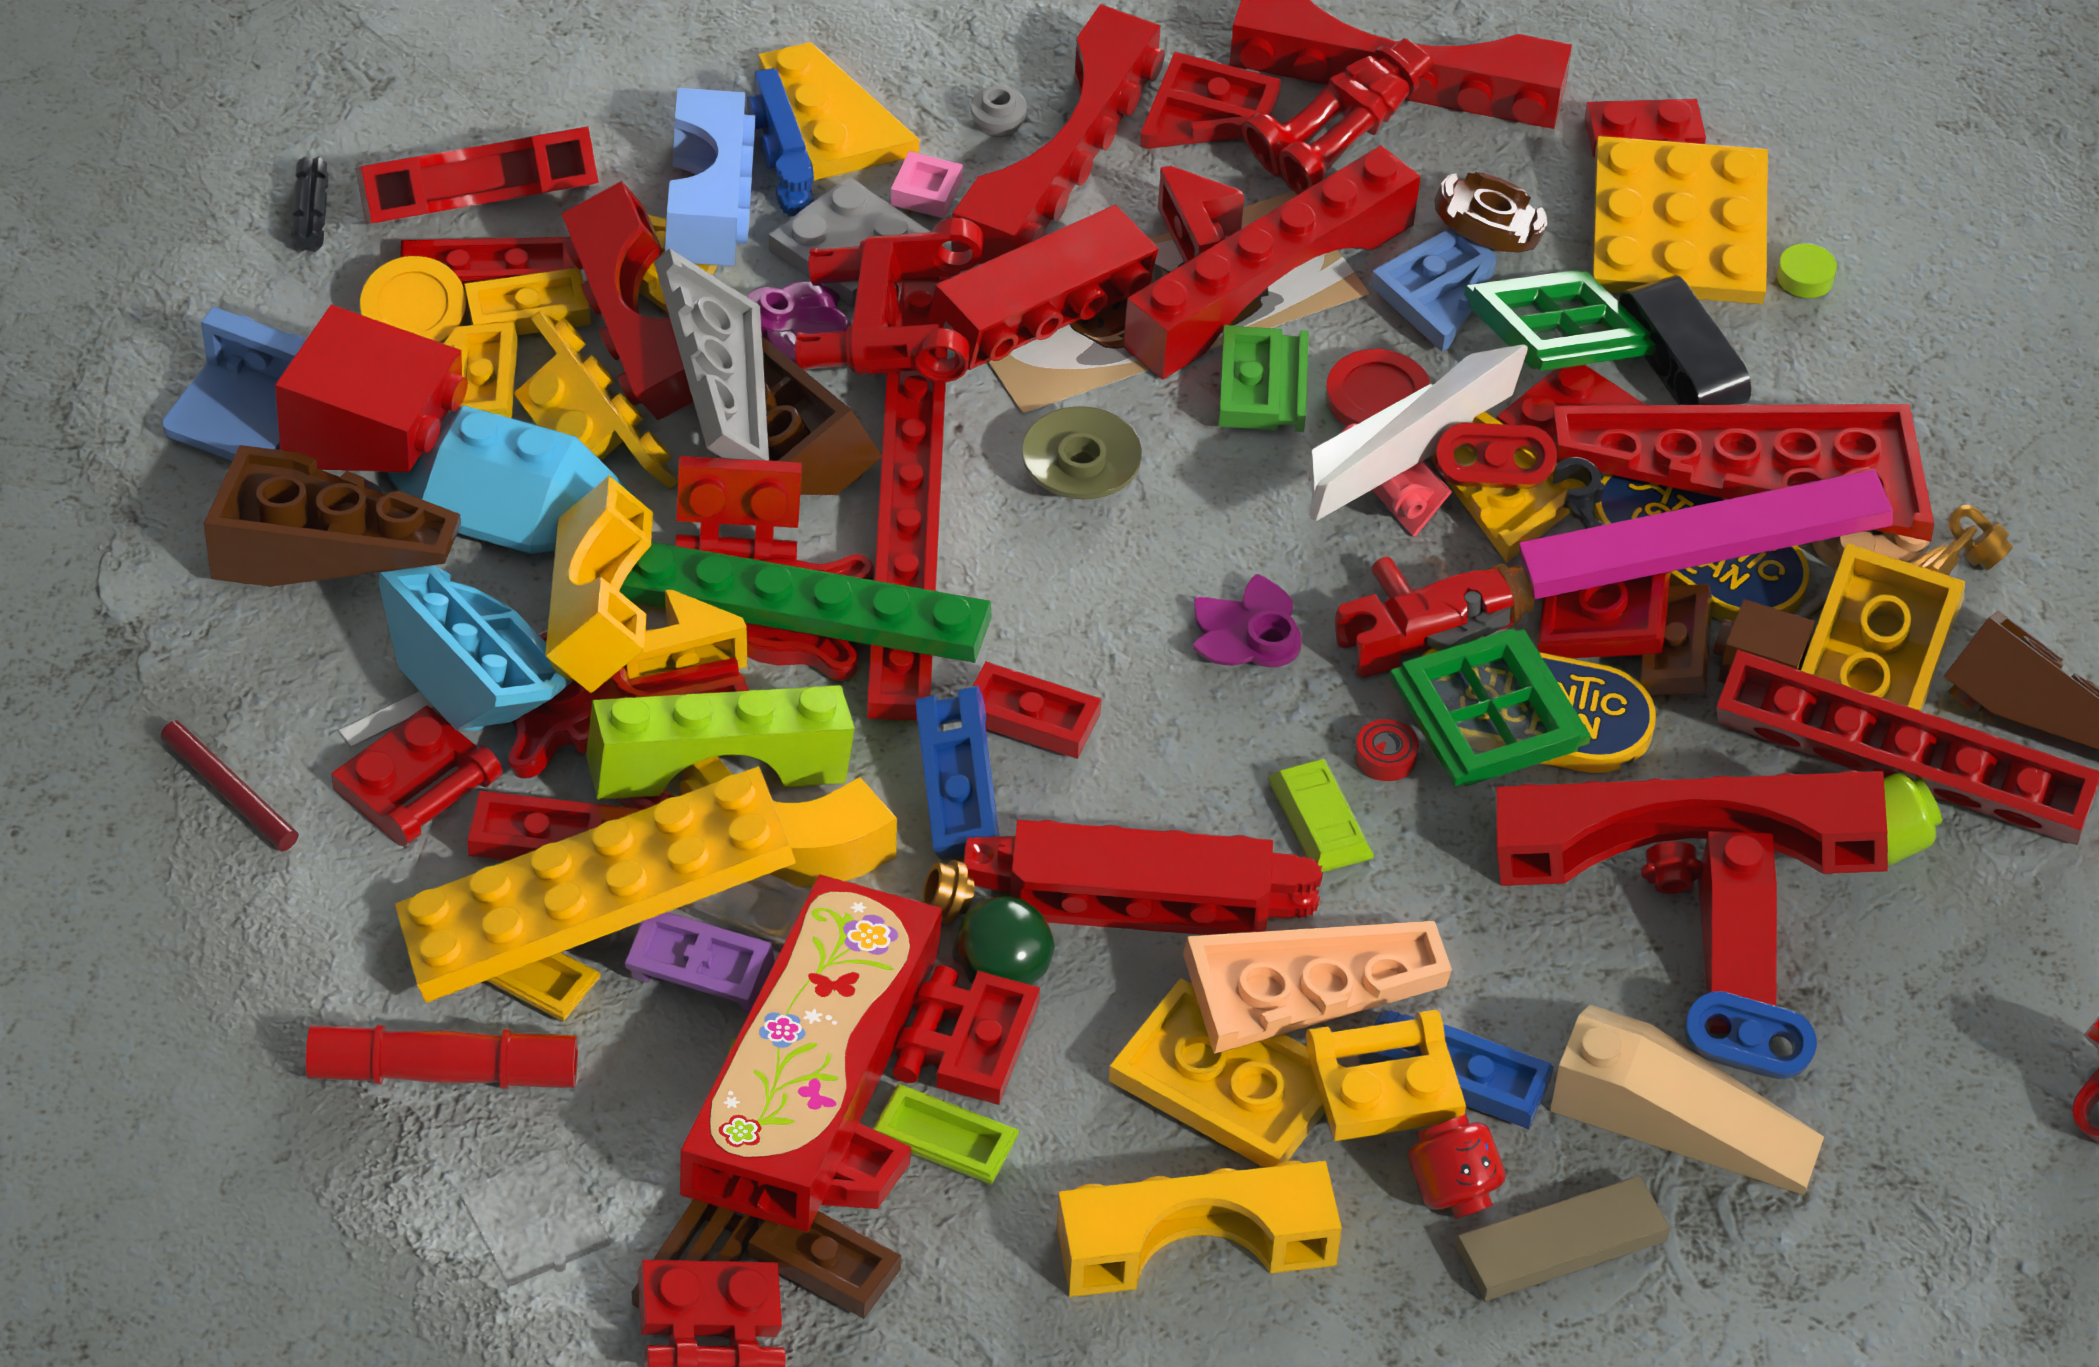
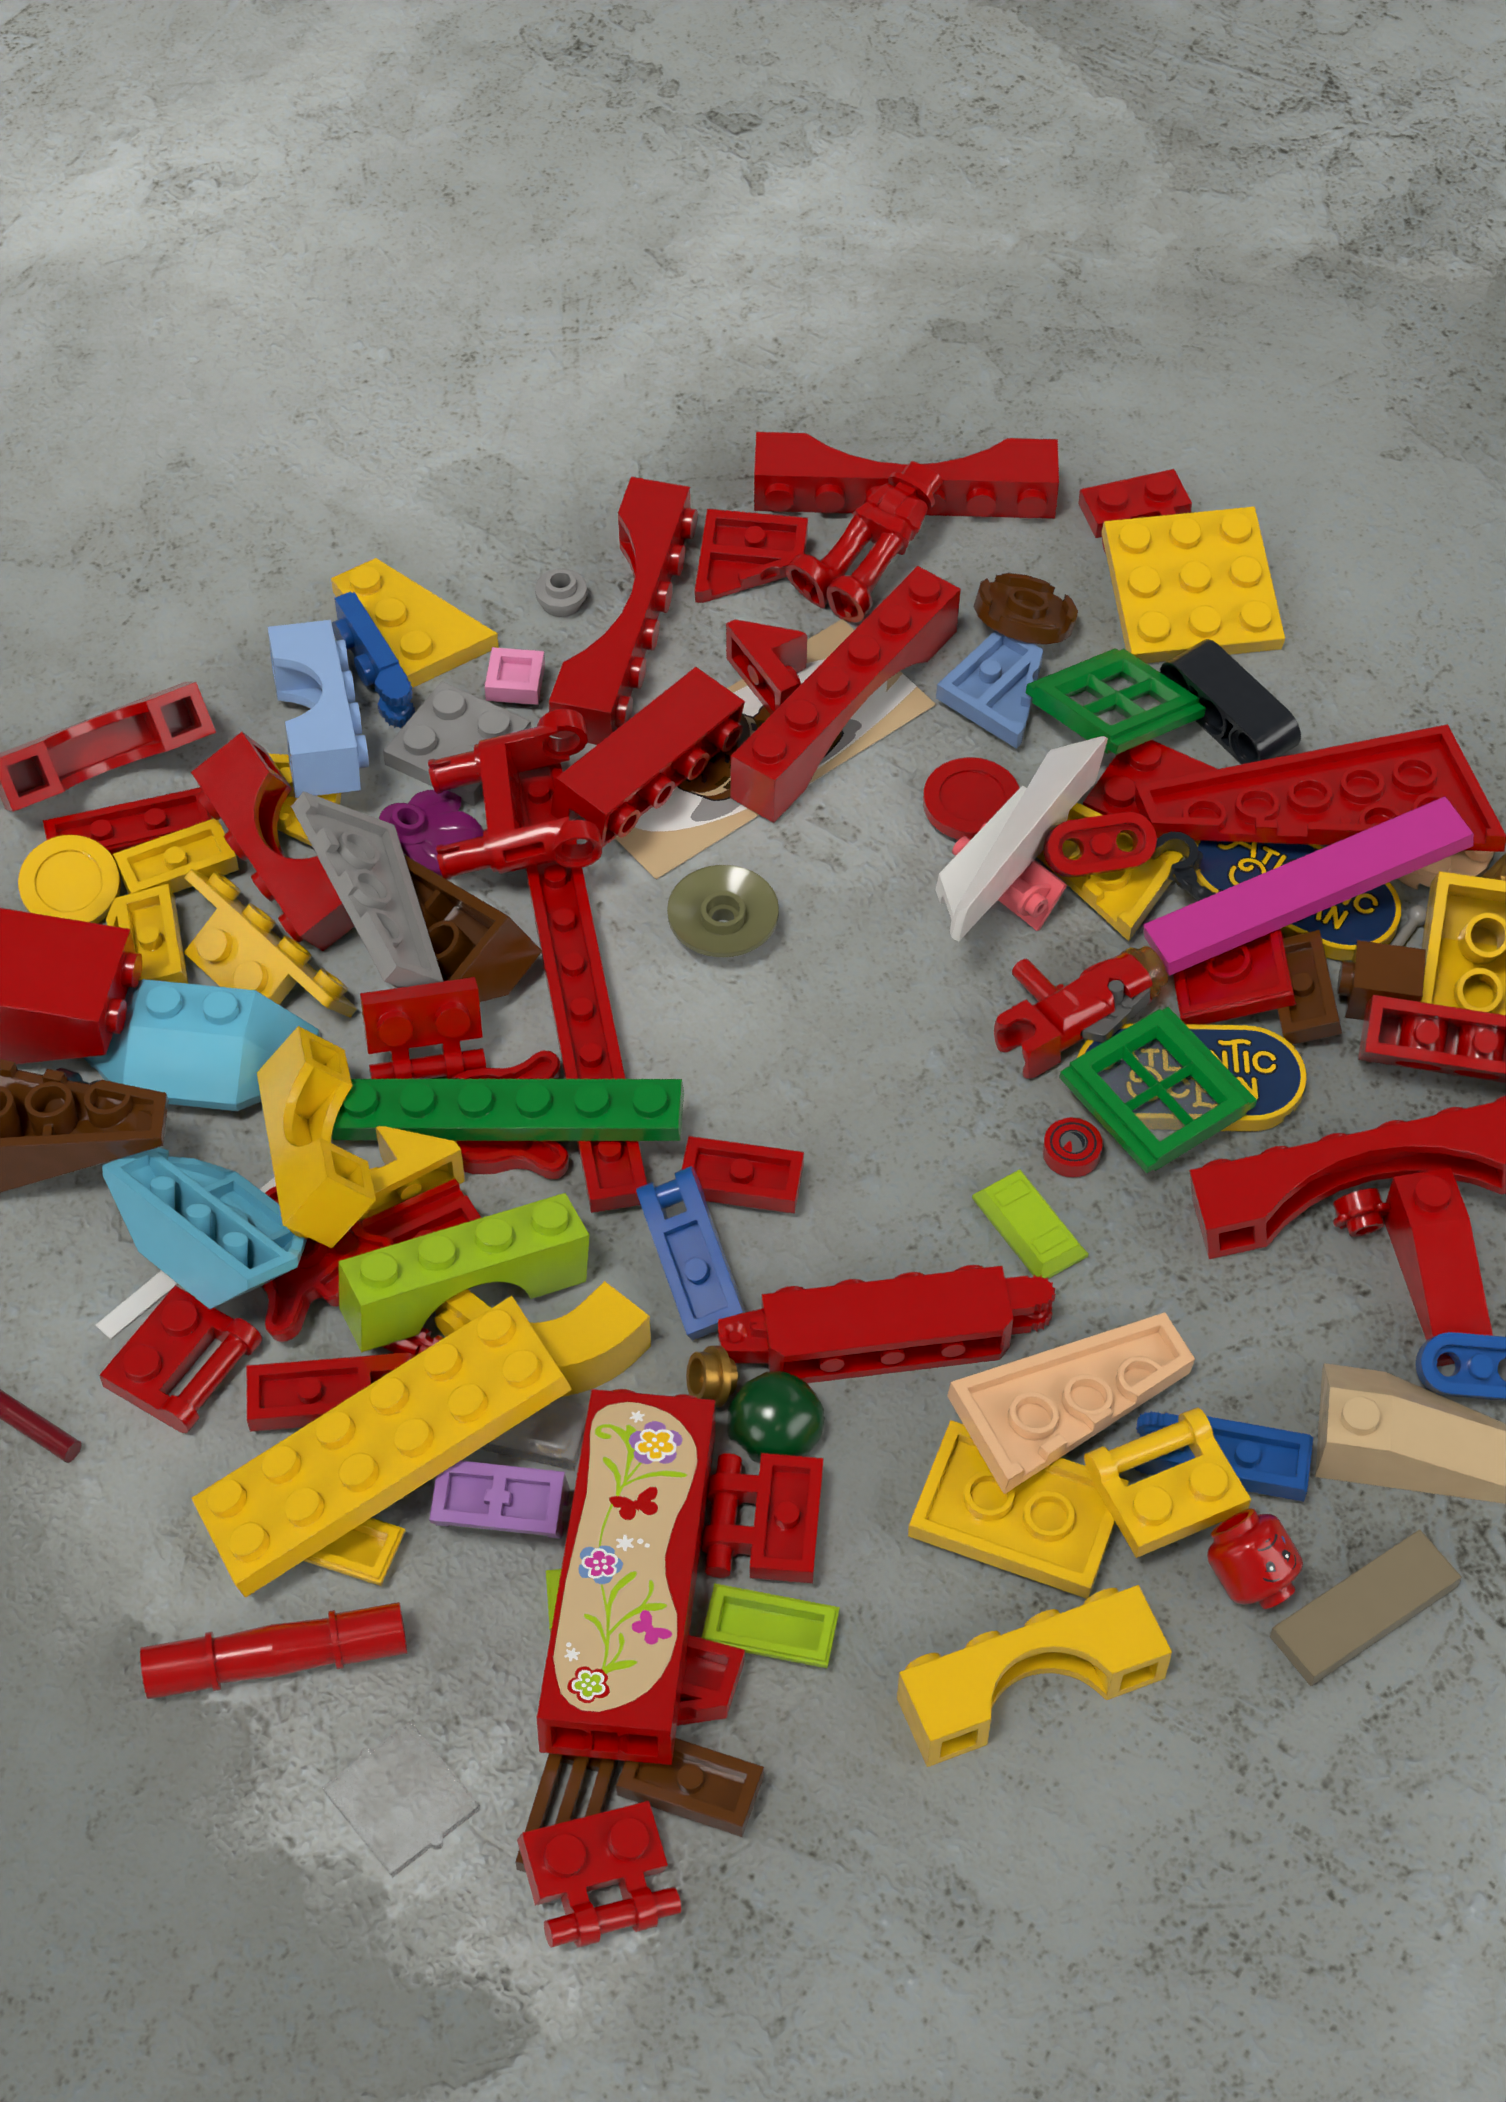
camera: 10 degrees left, 5 degrees up
(1248, 630) = (909, 1051): magenta plate -> none
(1263, 378) = (866, 806): bright green plate -> none
(1807, 270) = (1312, 611): lime tile -> none

